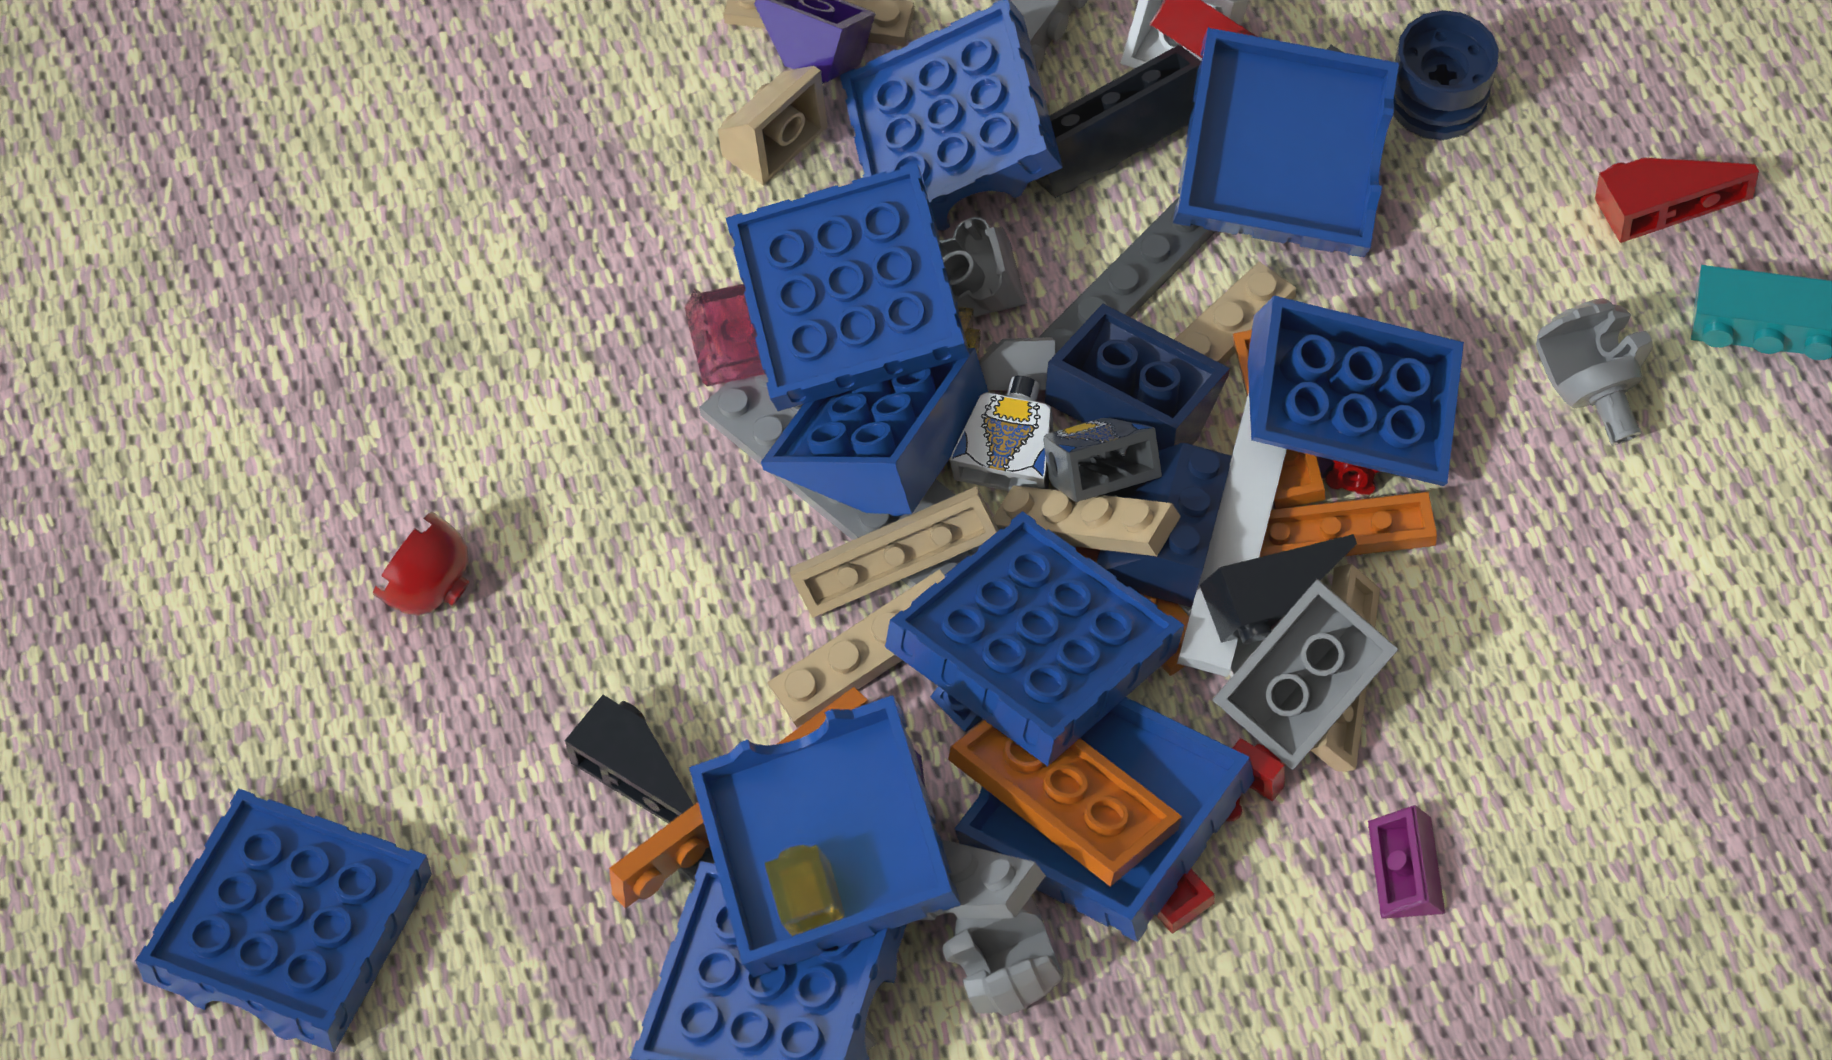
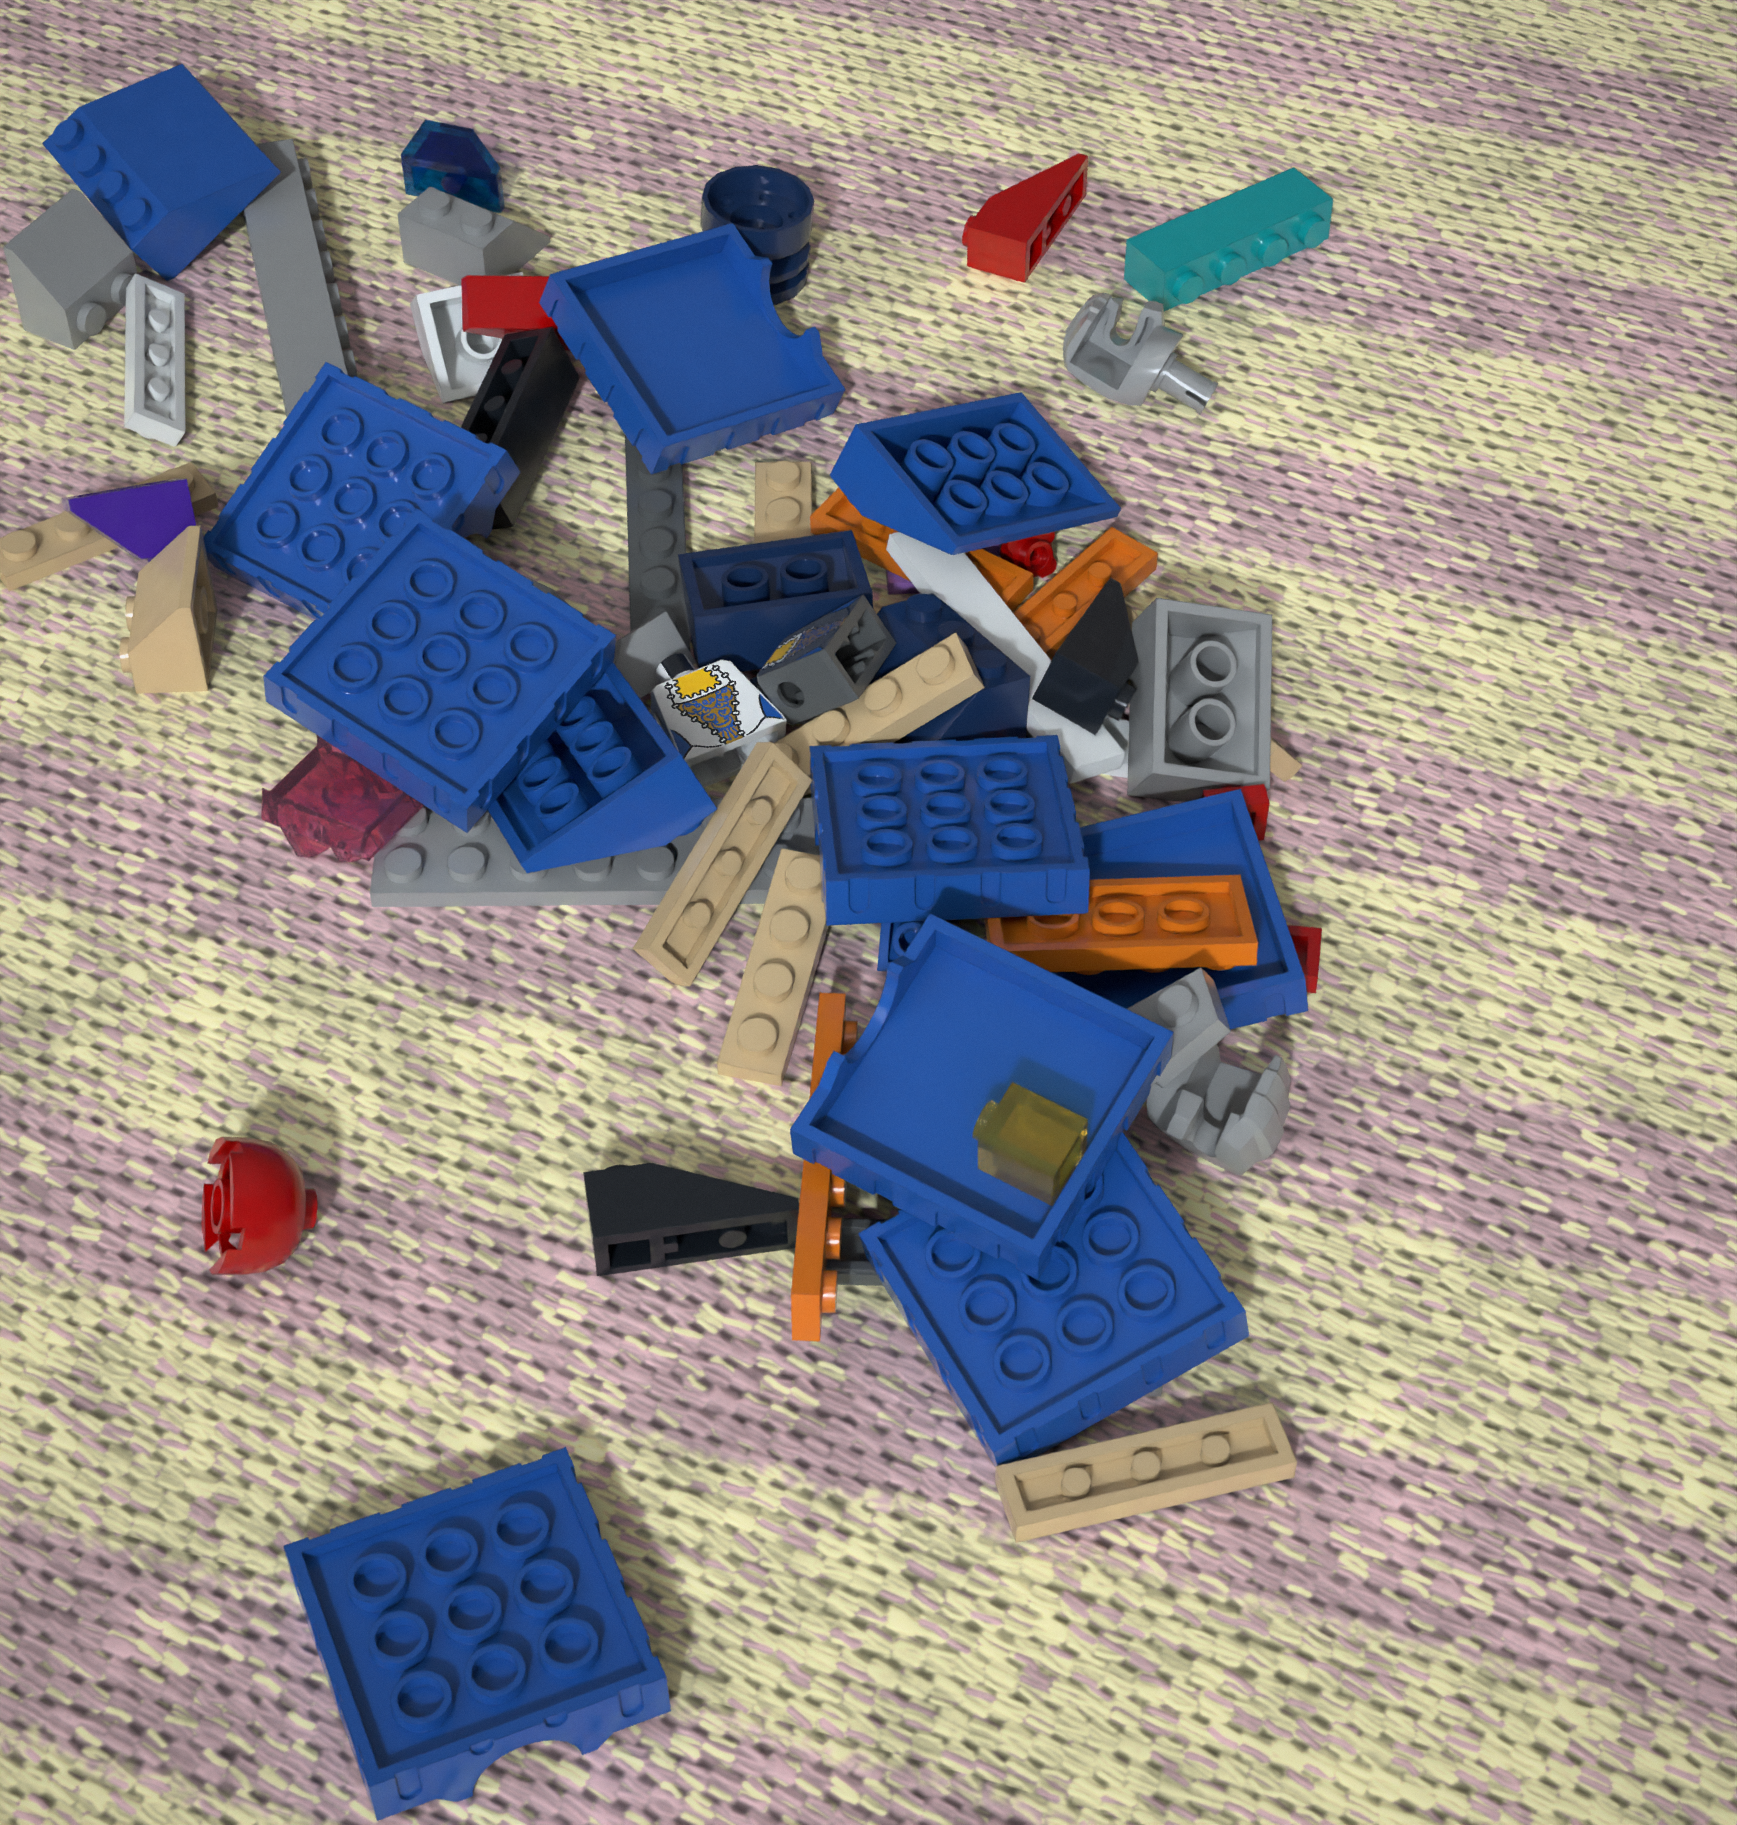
camera: 50 degrees left, 10 degrees down
(1406, 864) = (1428, 804): magenta slope -> none

